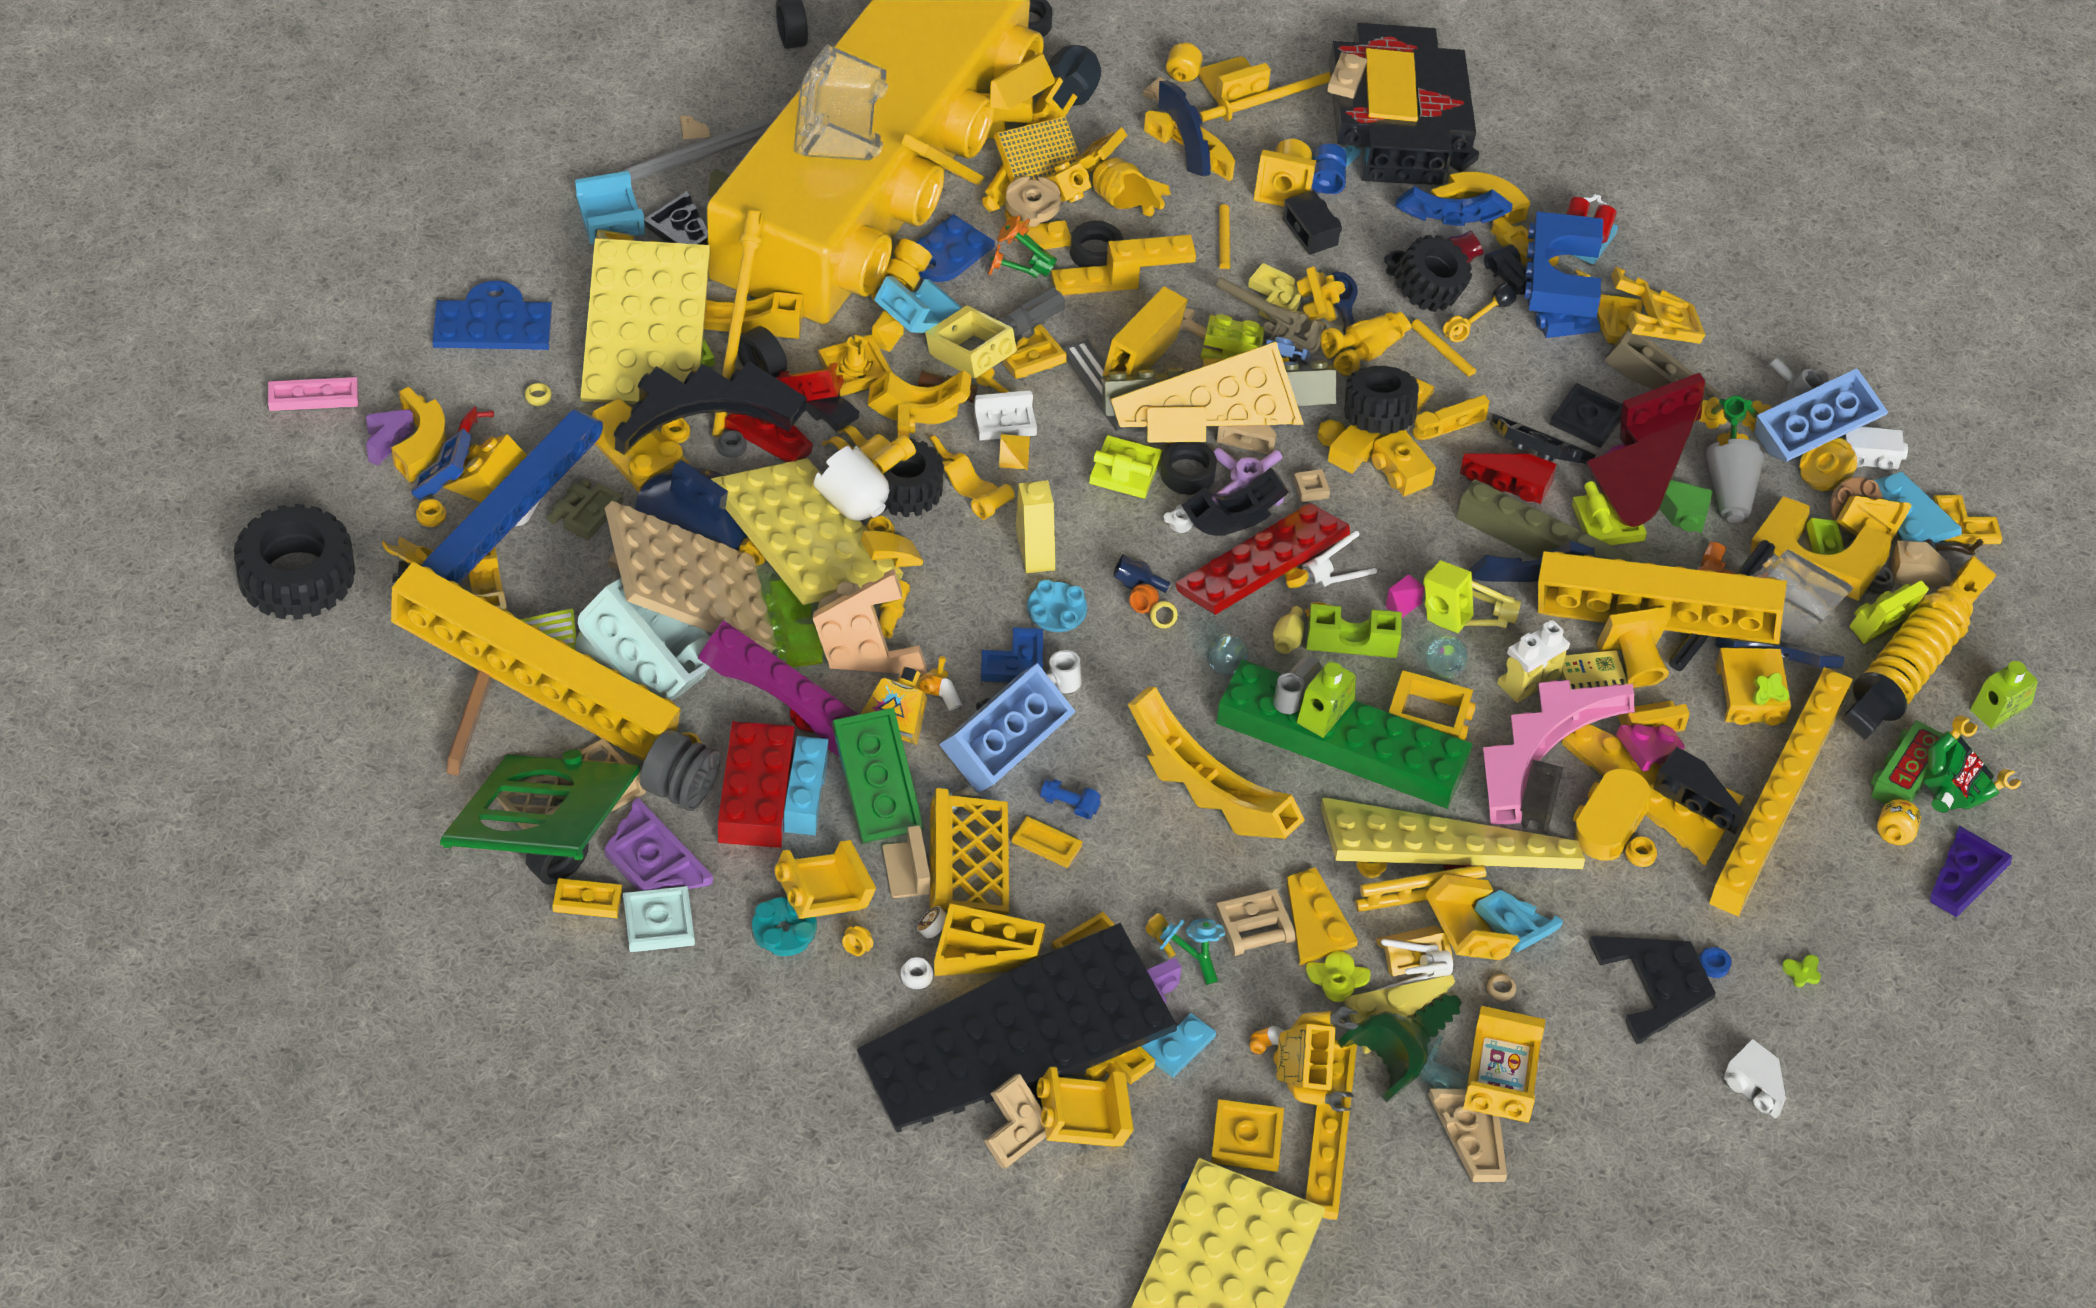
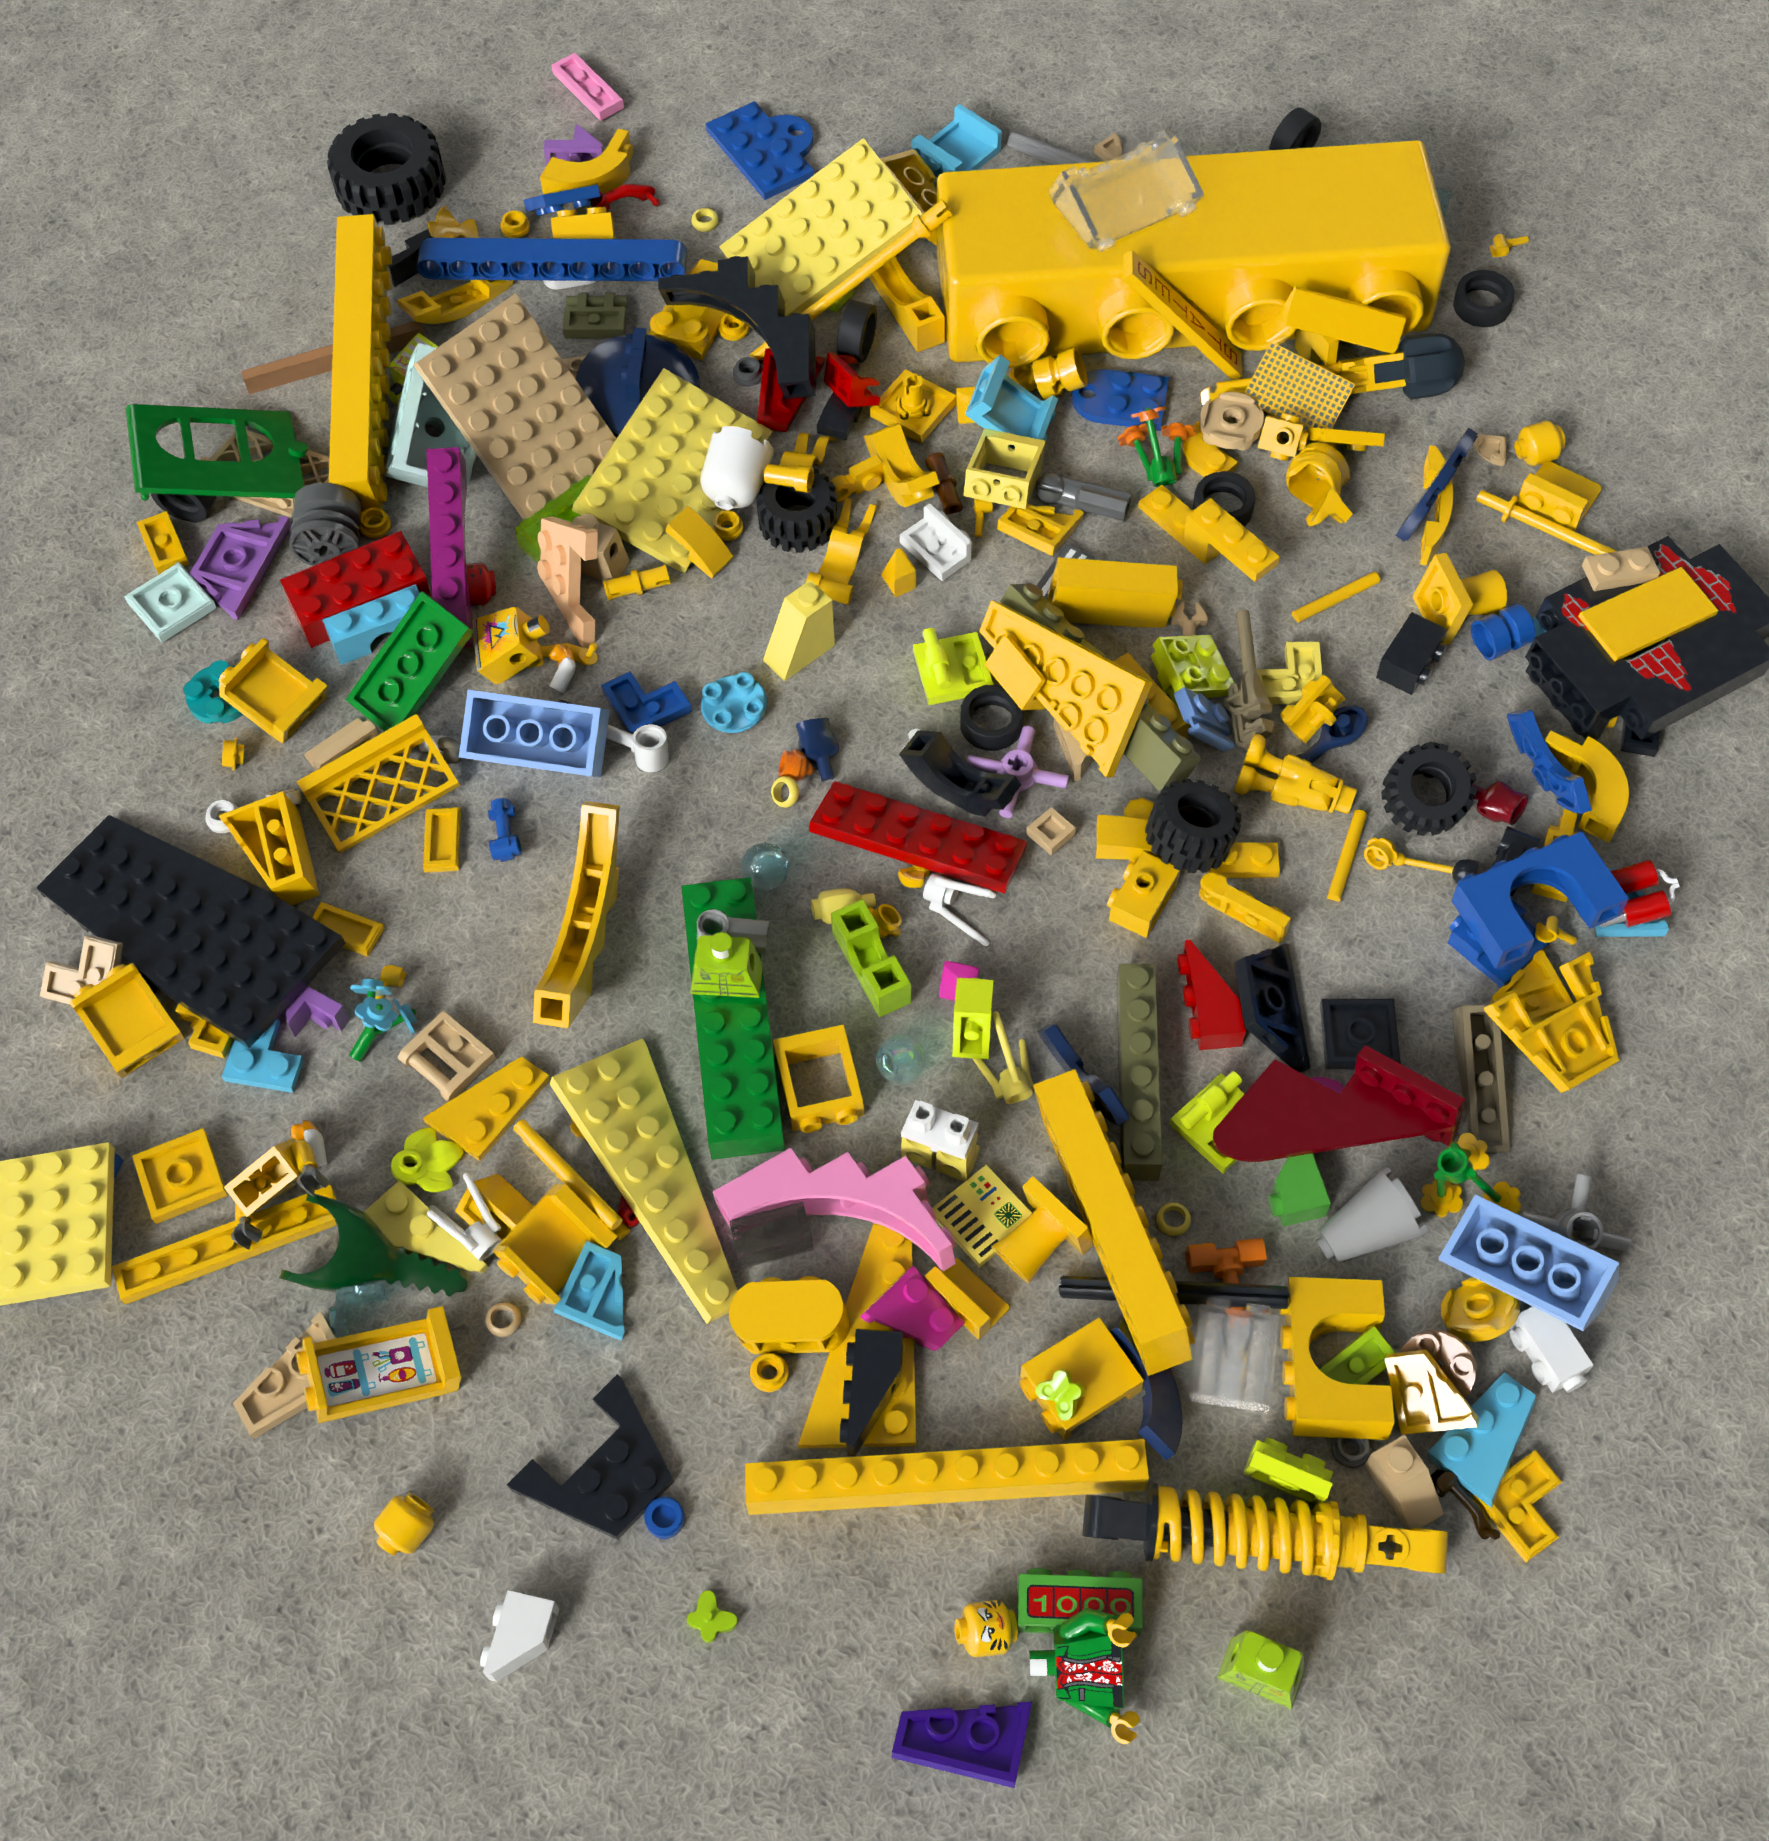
camera: 65 degrees right, 10 degrees up
(1635, 1110) = (404, 1524): none -> yellow head

